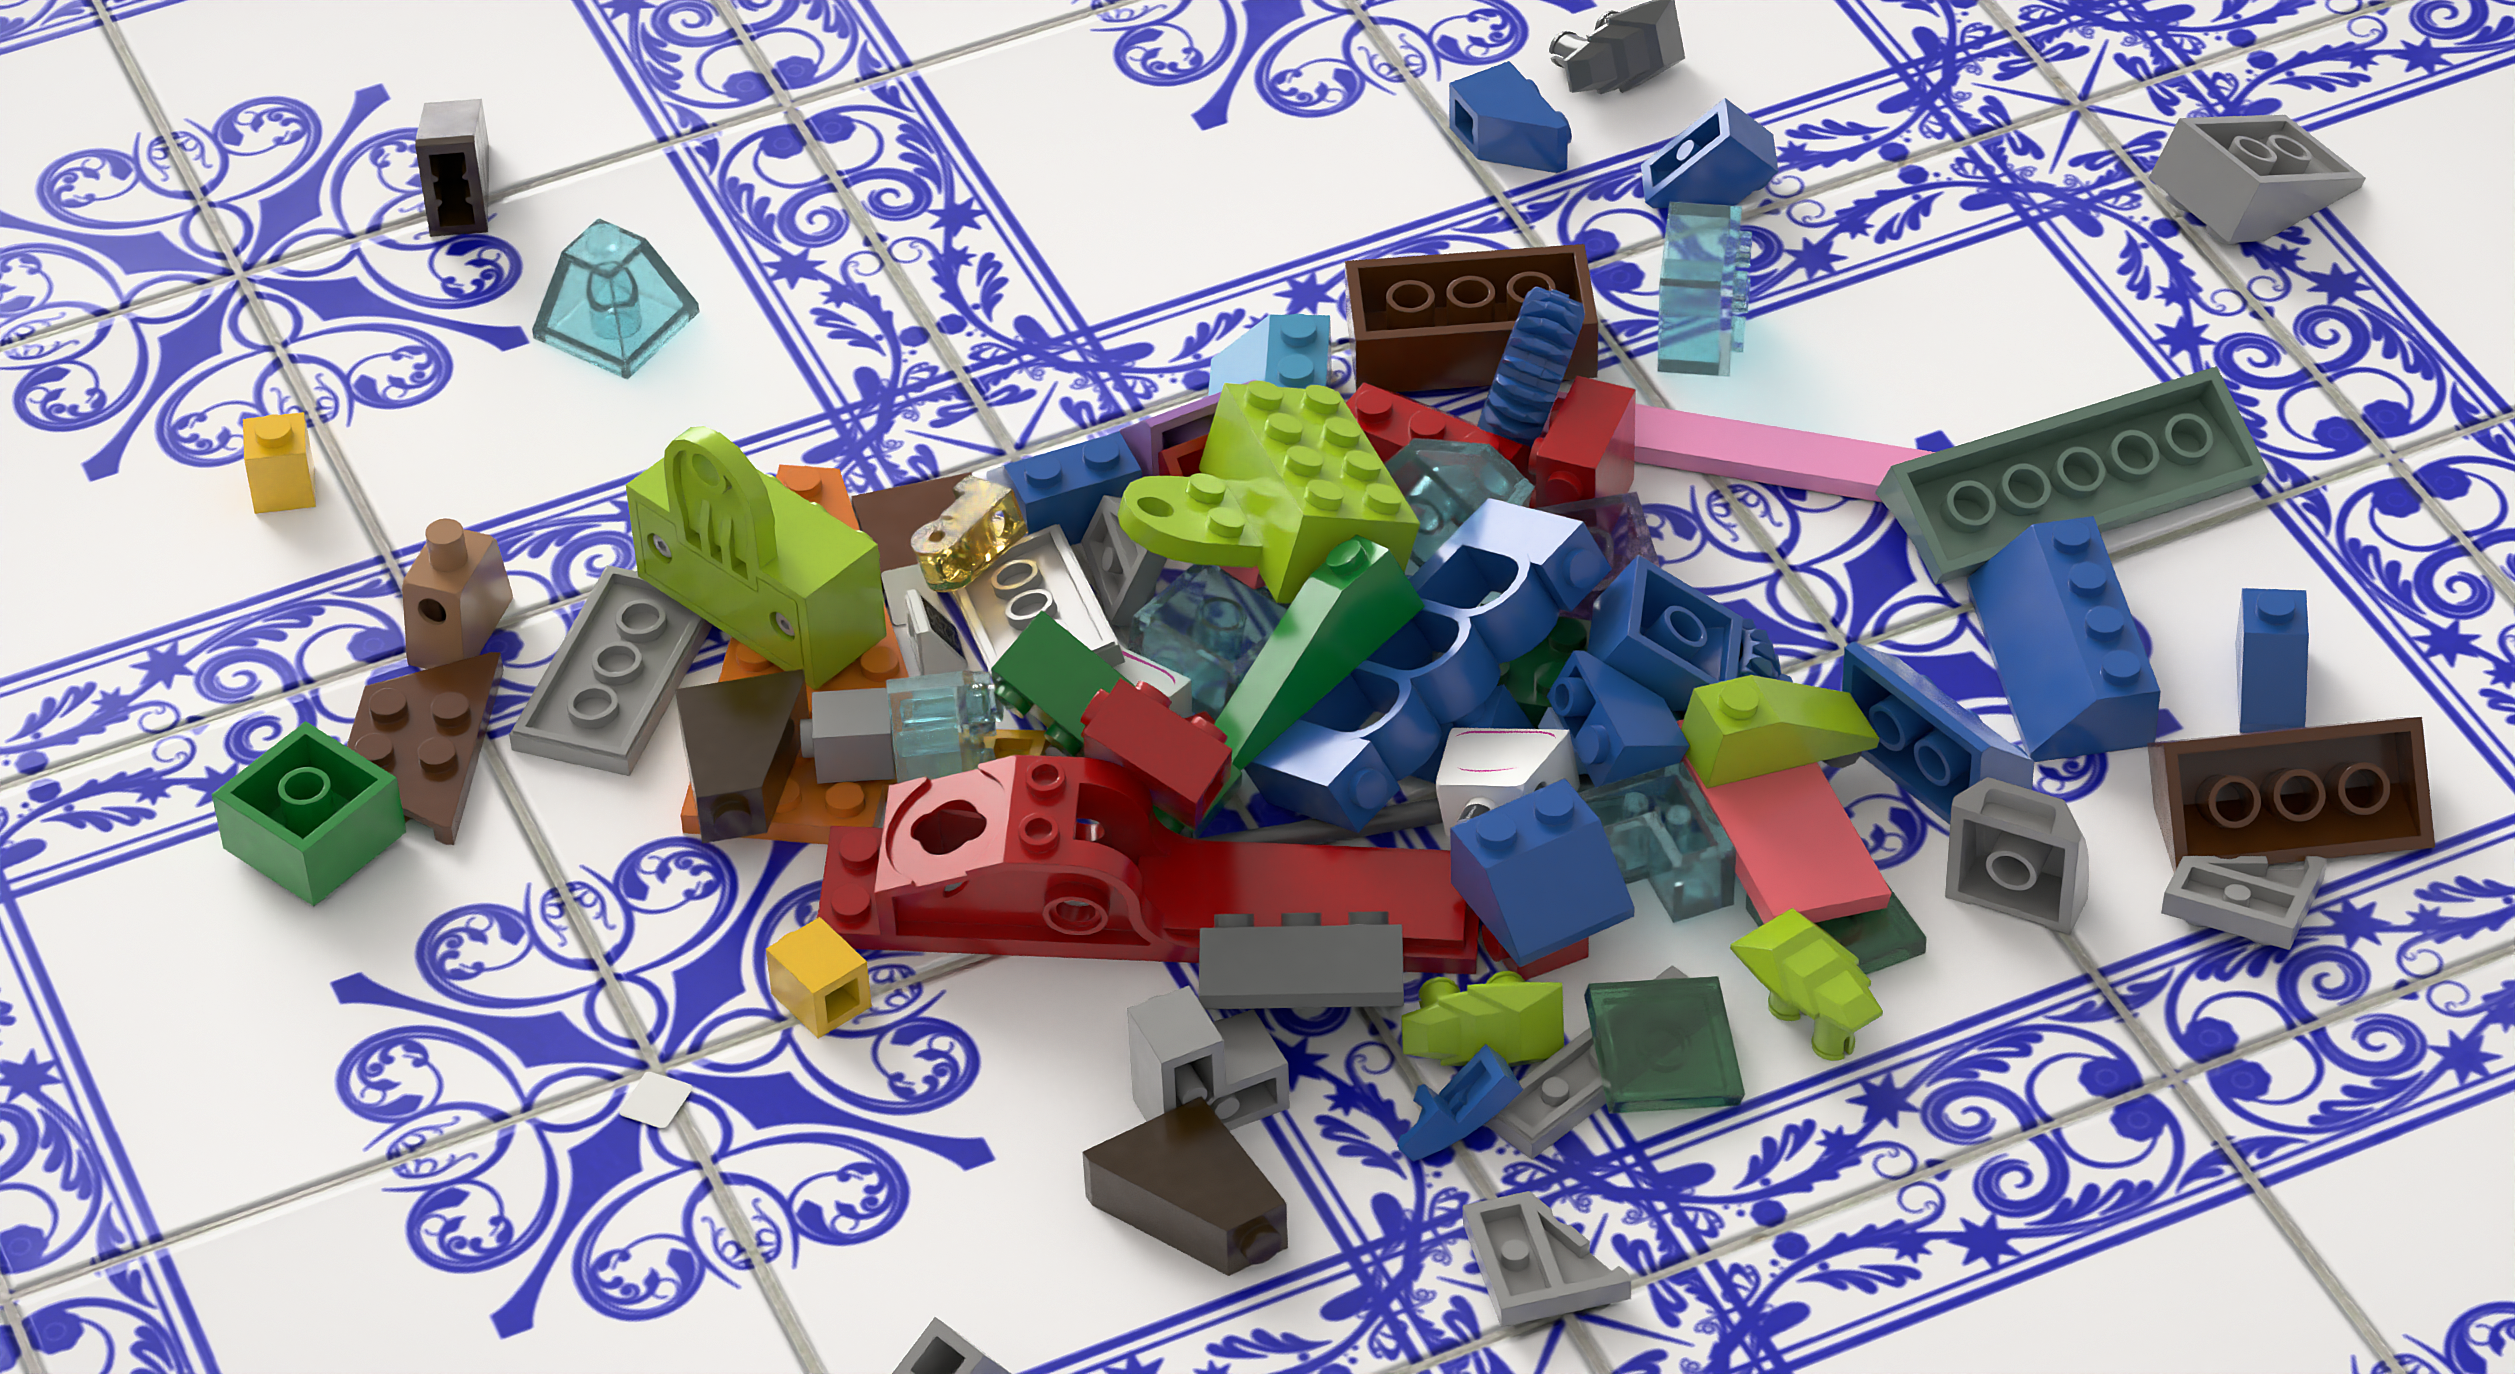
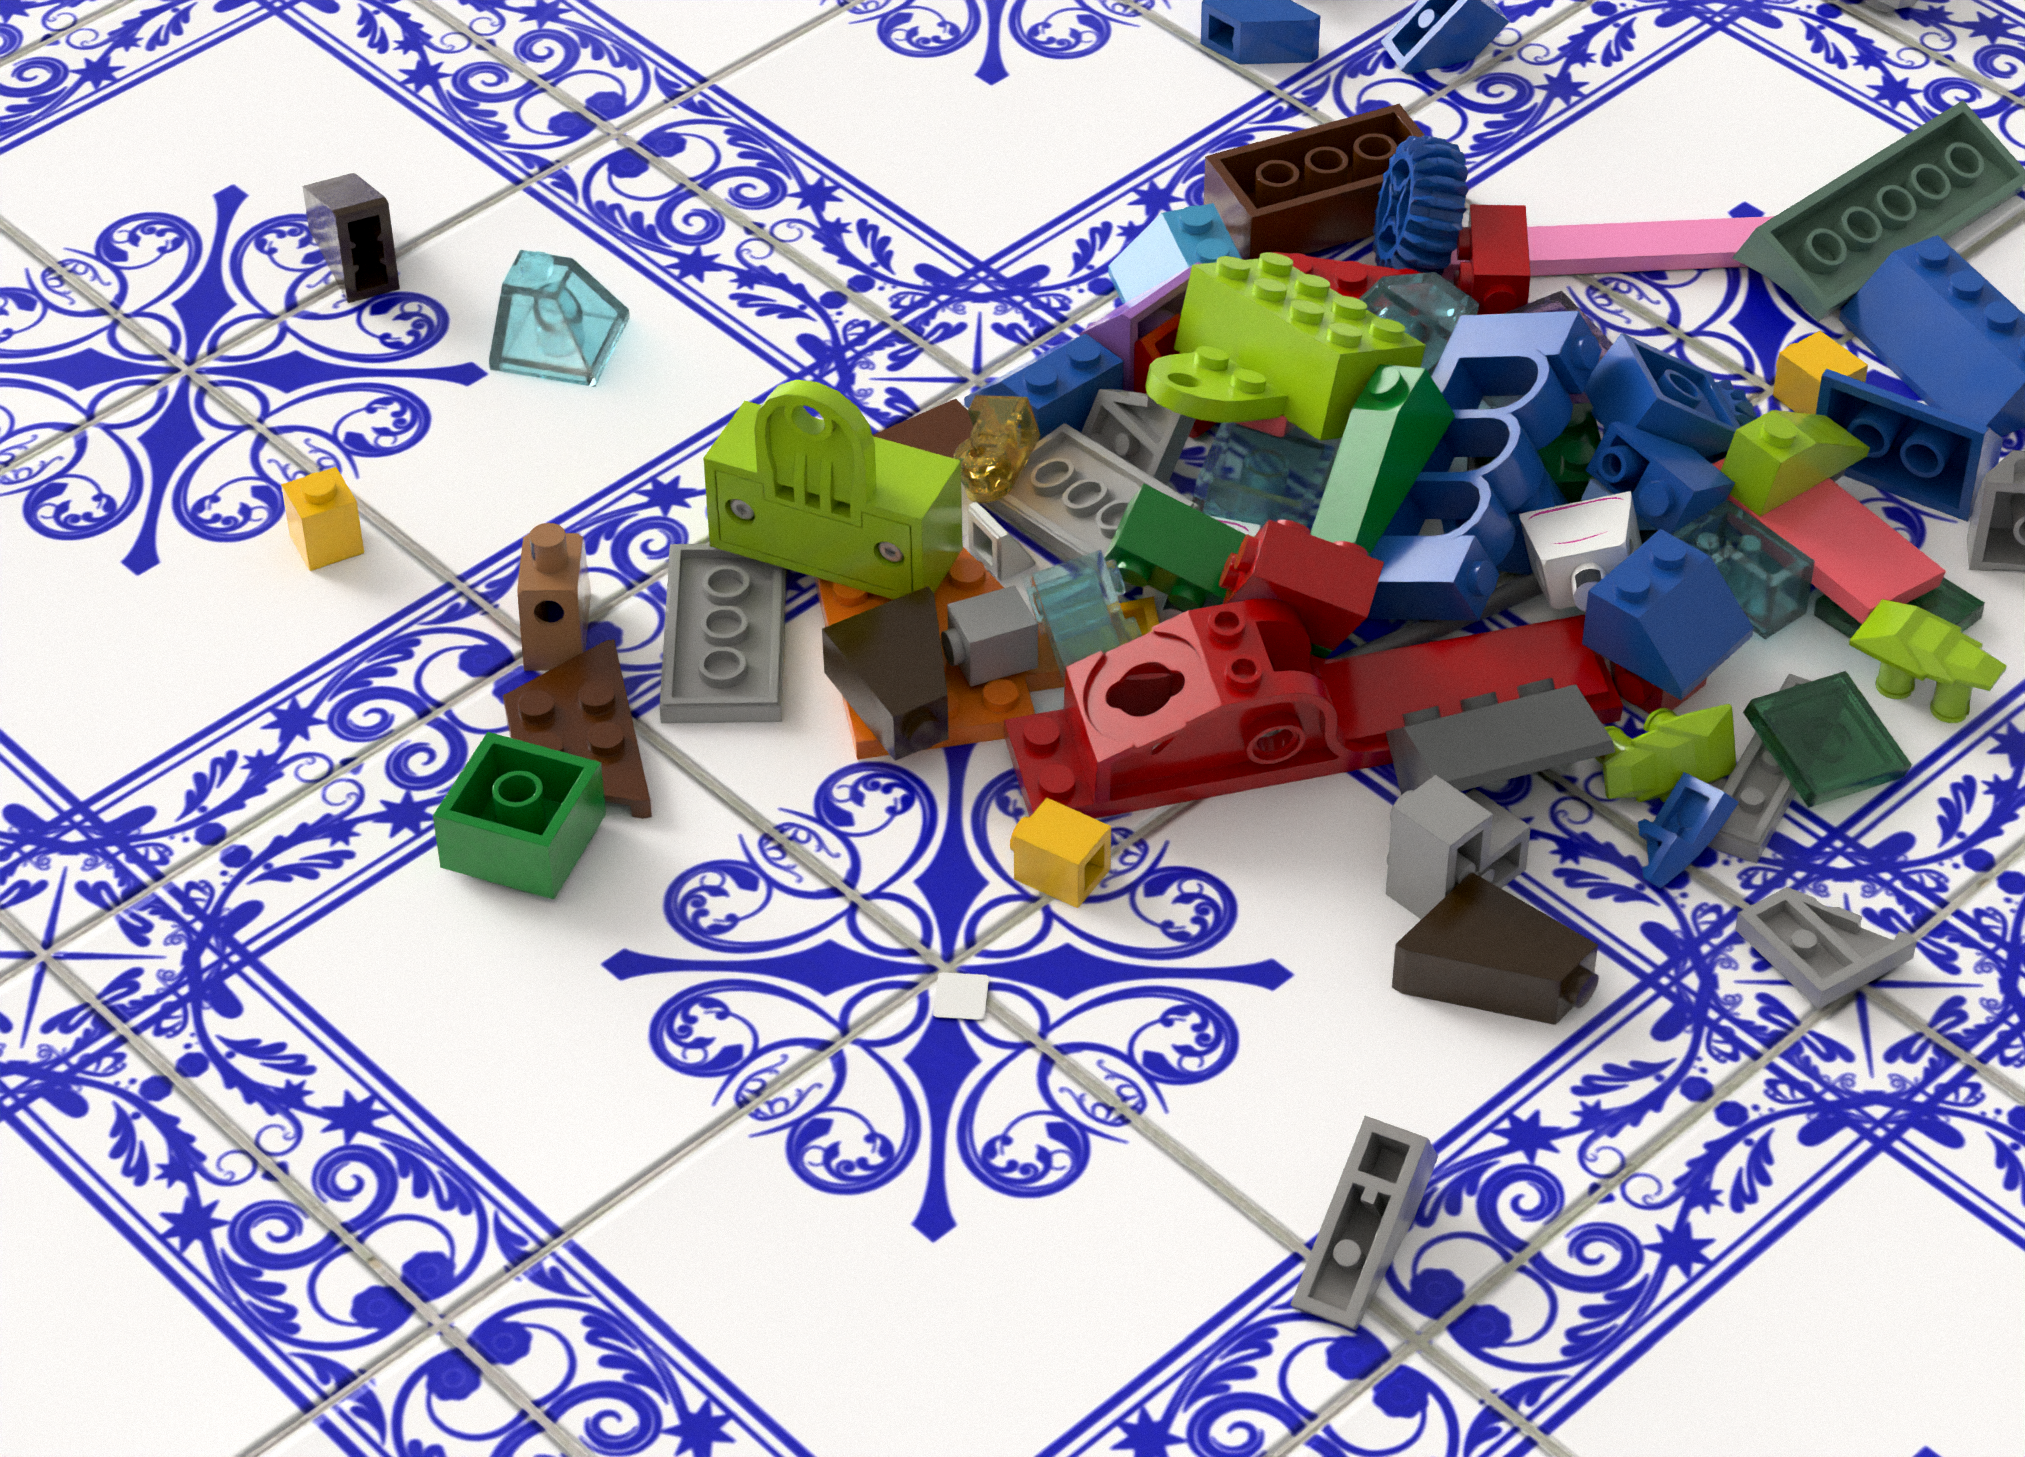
camera: 20 degrees left, 0 degrees up
(1703, 289) = (1508, 123): clear light blue brick -> none
(1895, 630) = (1802, 367): none -> yellow brick

